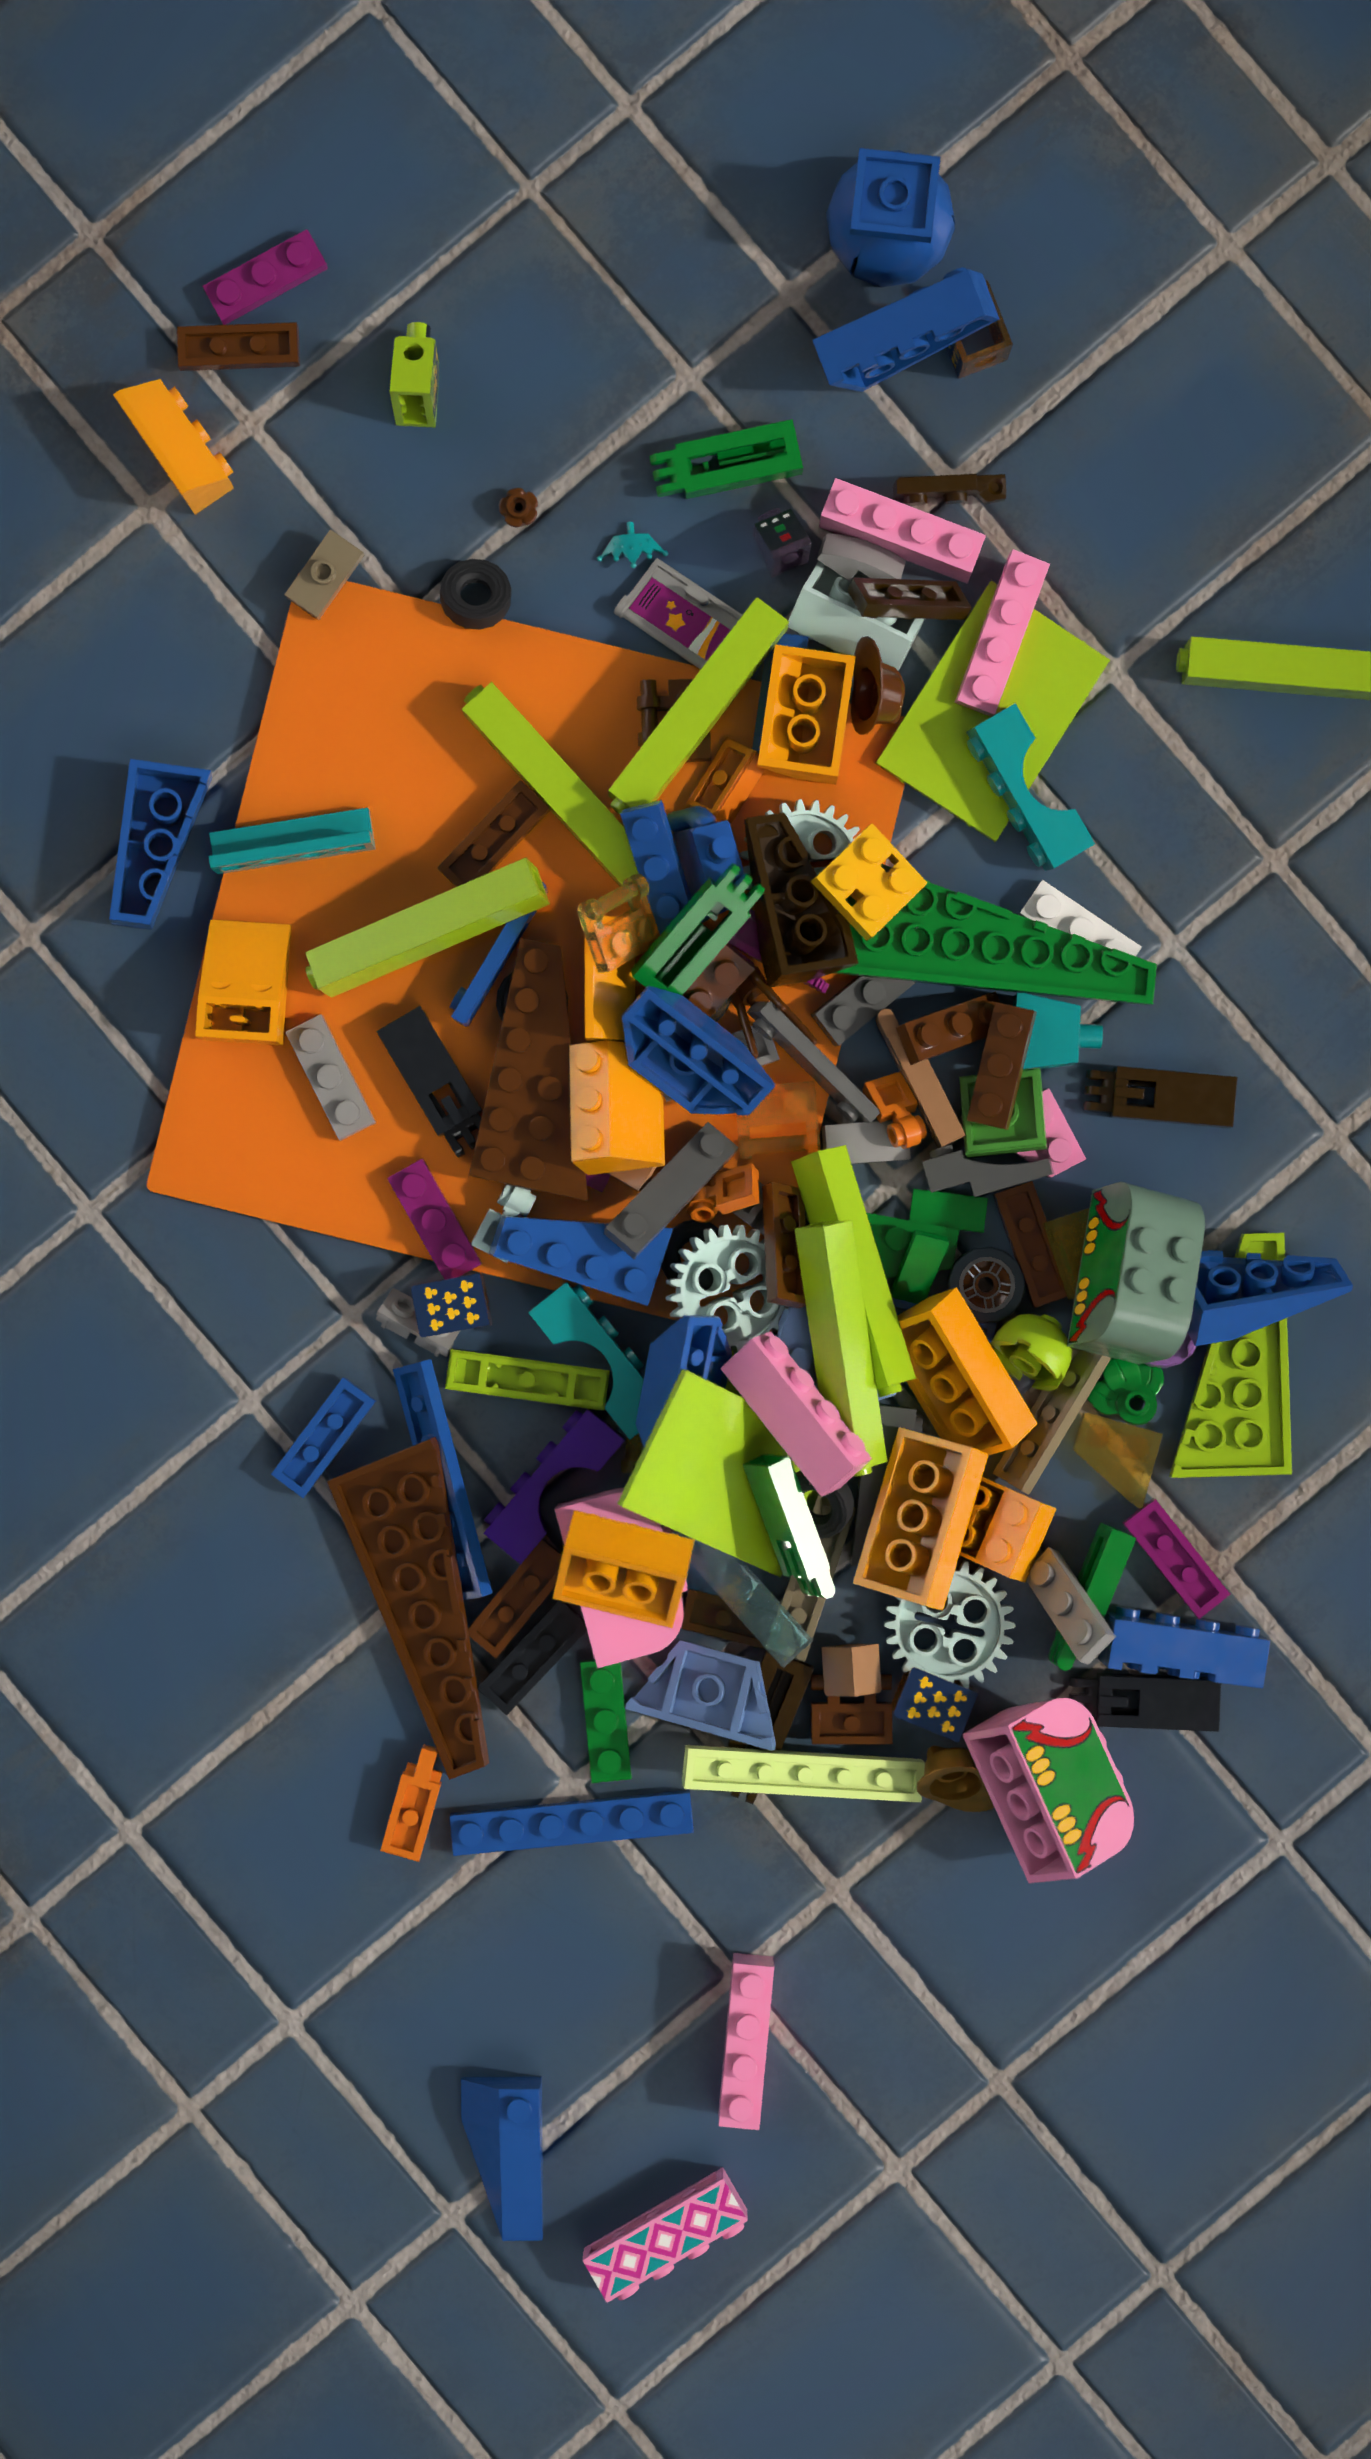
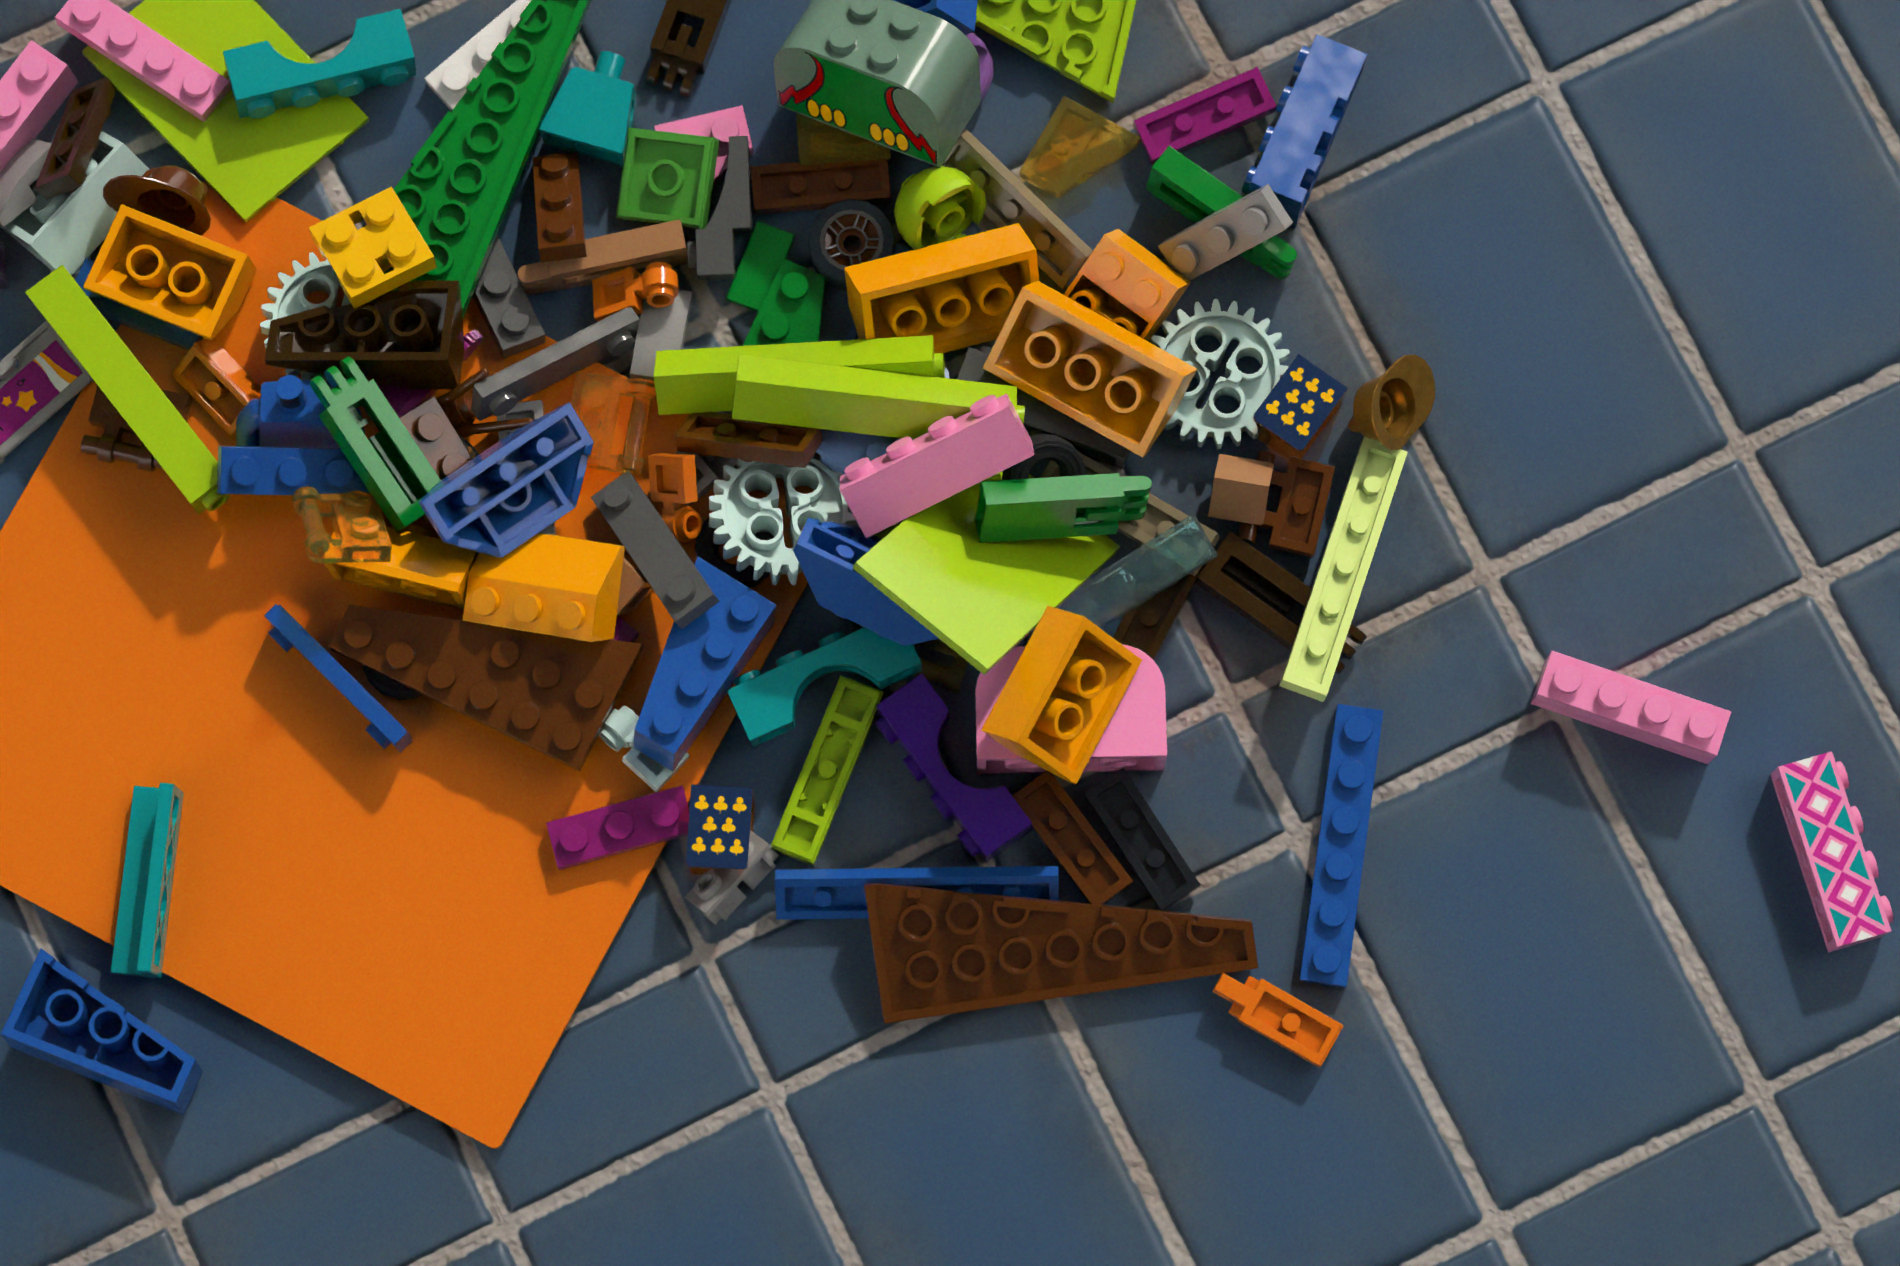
camera: 80 degrees left, 10 degrees down
(244, 983) = (293, 971): light orange slope -> none
(323, 1437) = (833, 1016): blue plate -> none
(330, 1077) = (426, 904): light grey plate -> none
(426, 928) = (288, 747): lime brick -> none
(429, 1067) = (445, 793): black hinge -> none
(494, 836) = (209, 654): reddish brown plate -> none
(506, 2139) = (1685, 1005): blue wedge -> none
(551, 780) = (166, 571): lime brick -> none
(606, 1722) = (1234, 778): green plate -> none
(710, 1694) = (1230, 652): medium blue wing -> none
(919, 1267) = (812, 307): green piece -> none
(1001, 1066) = (615, 163): reddish brown plate -> none
(1053, 1787) = (1420, 297): brick -> none
(1121, 1385) = (998, 123): green plate -> none
(1162, 1701) = (1362, 168): black hinge -> none

